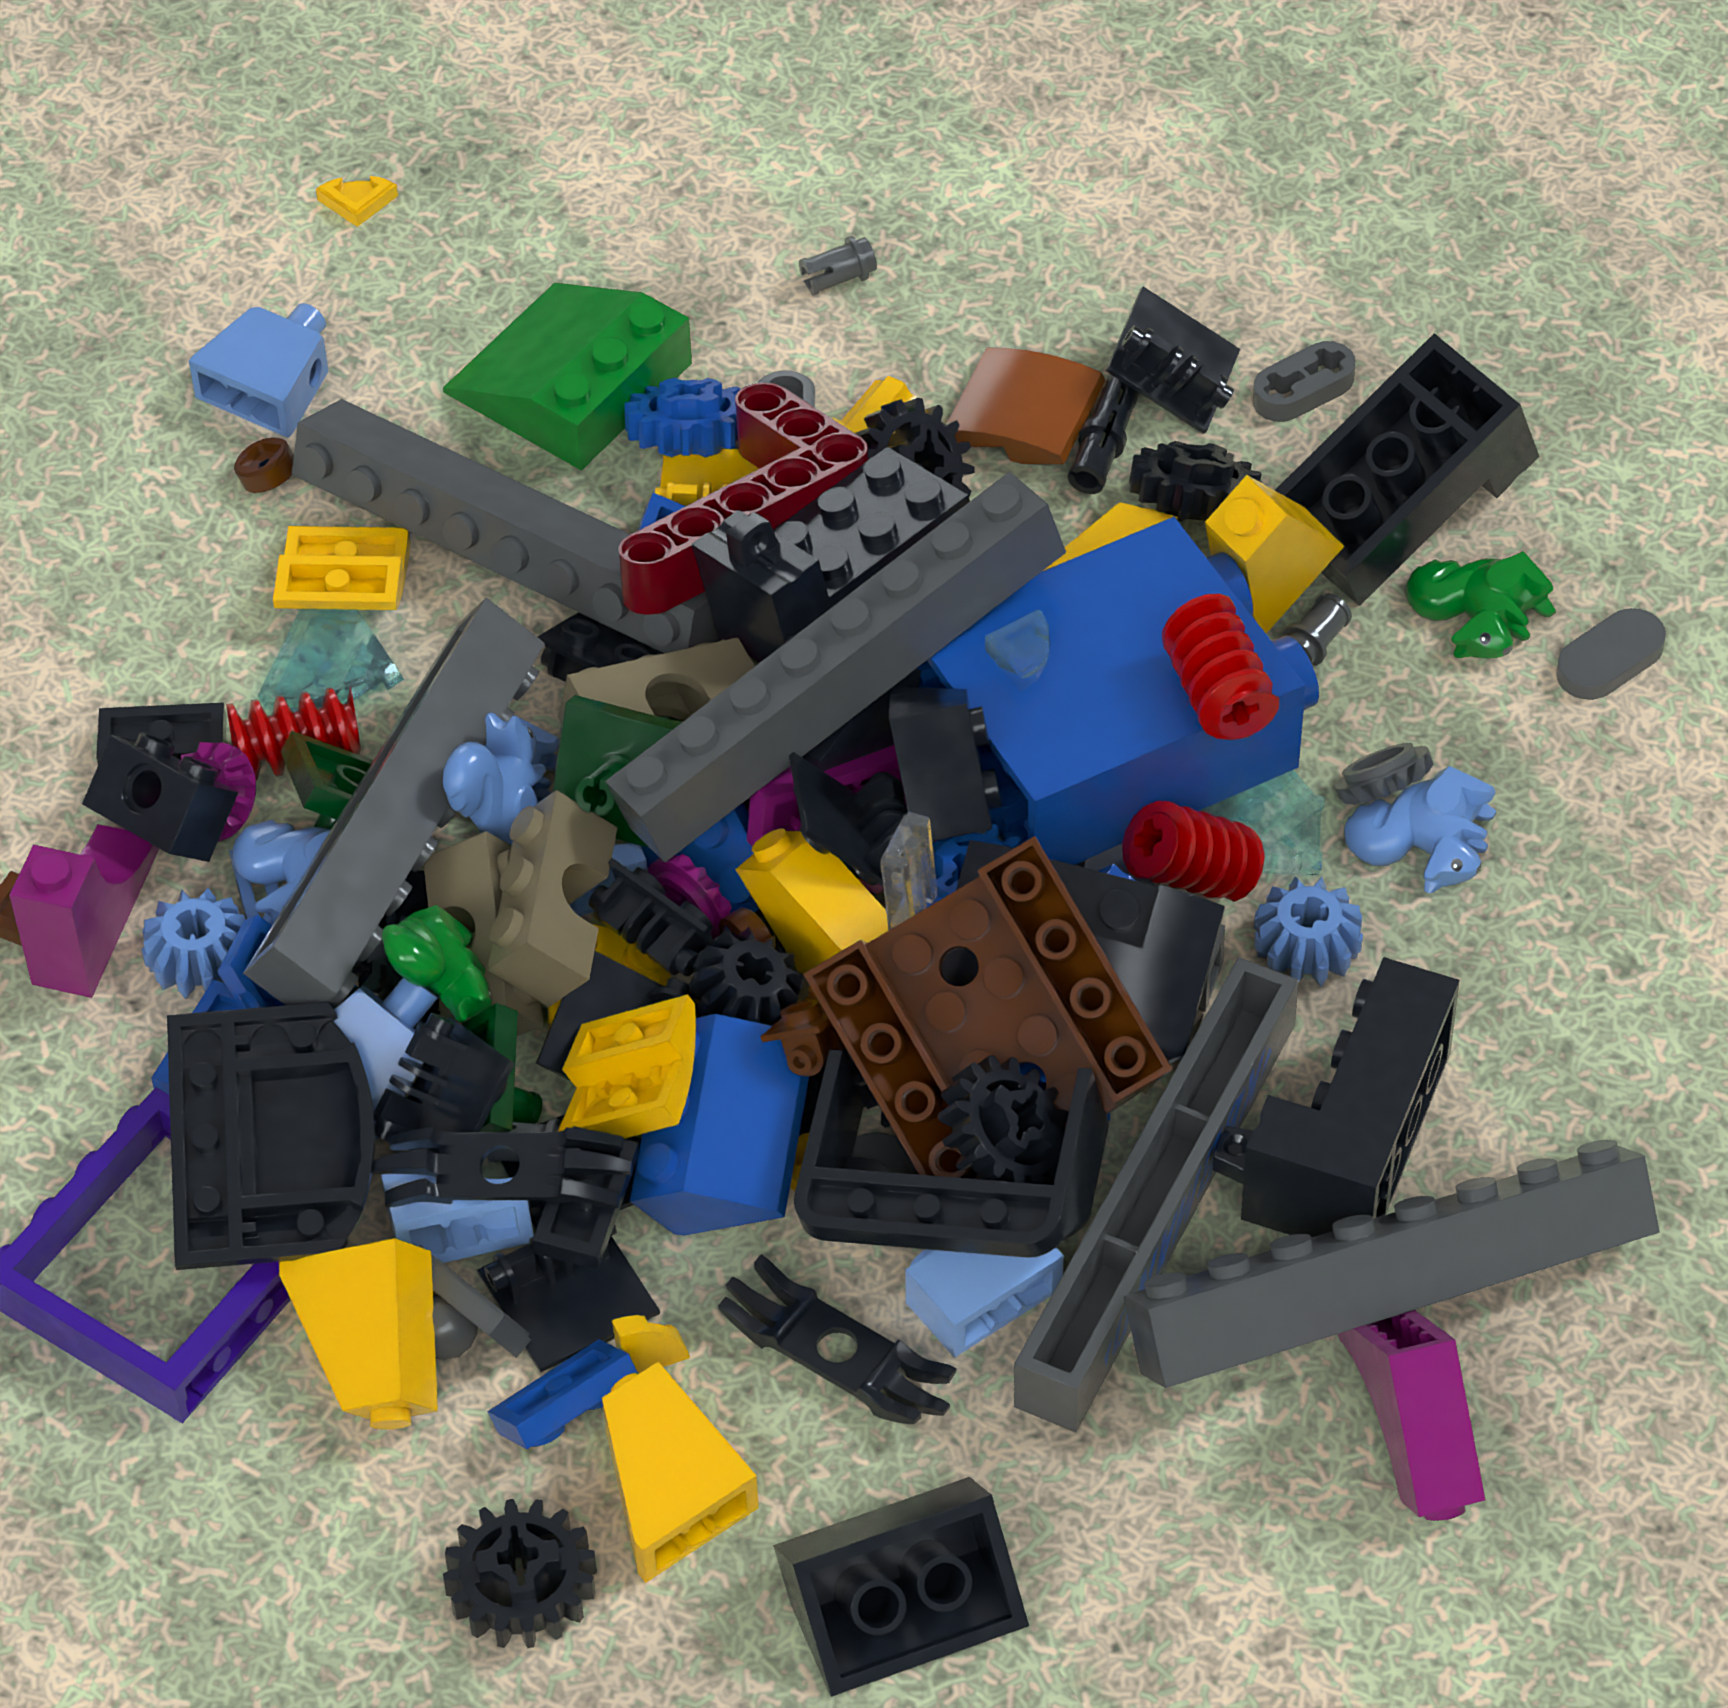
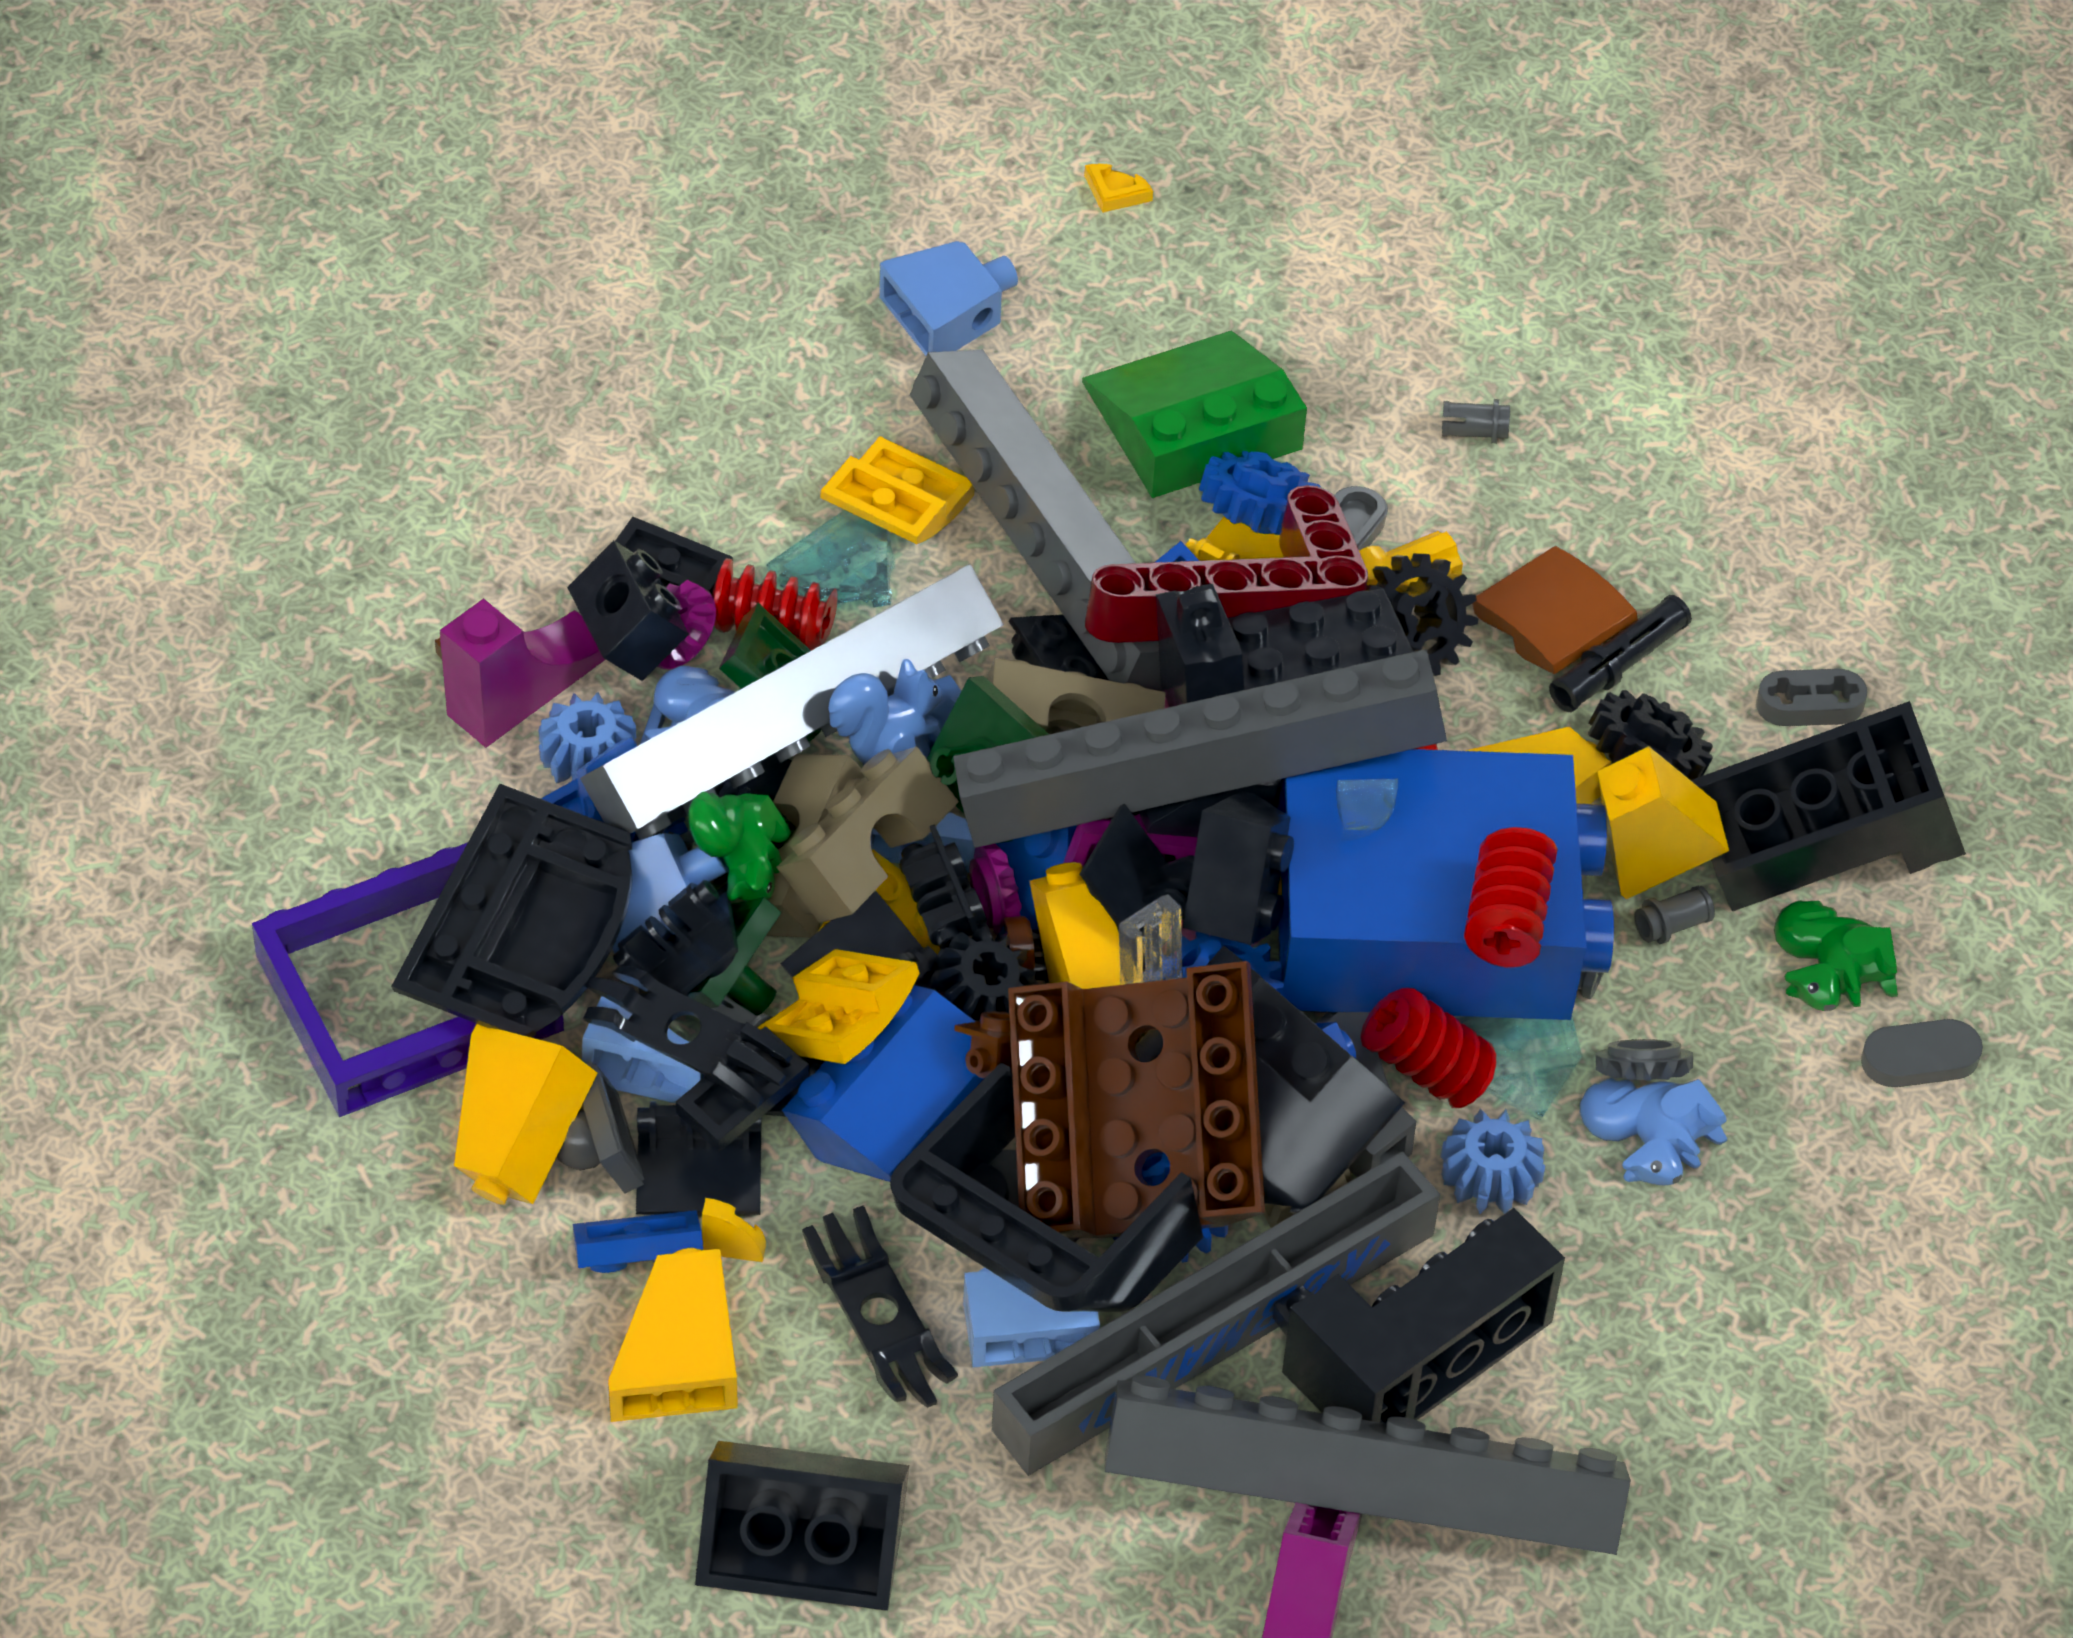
camera: 25 degrees right, 0 degrees up
(264, 465) = (893, 377): reddish brown tile -> none
(484, 1566) = (528, 1379): black gear -> none
(1004, 1123) = (1082, 1180): black gear -> none
(1174, 360) = (1704, 627): black hinge -> none

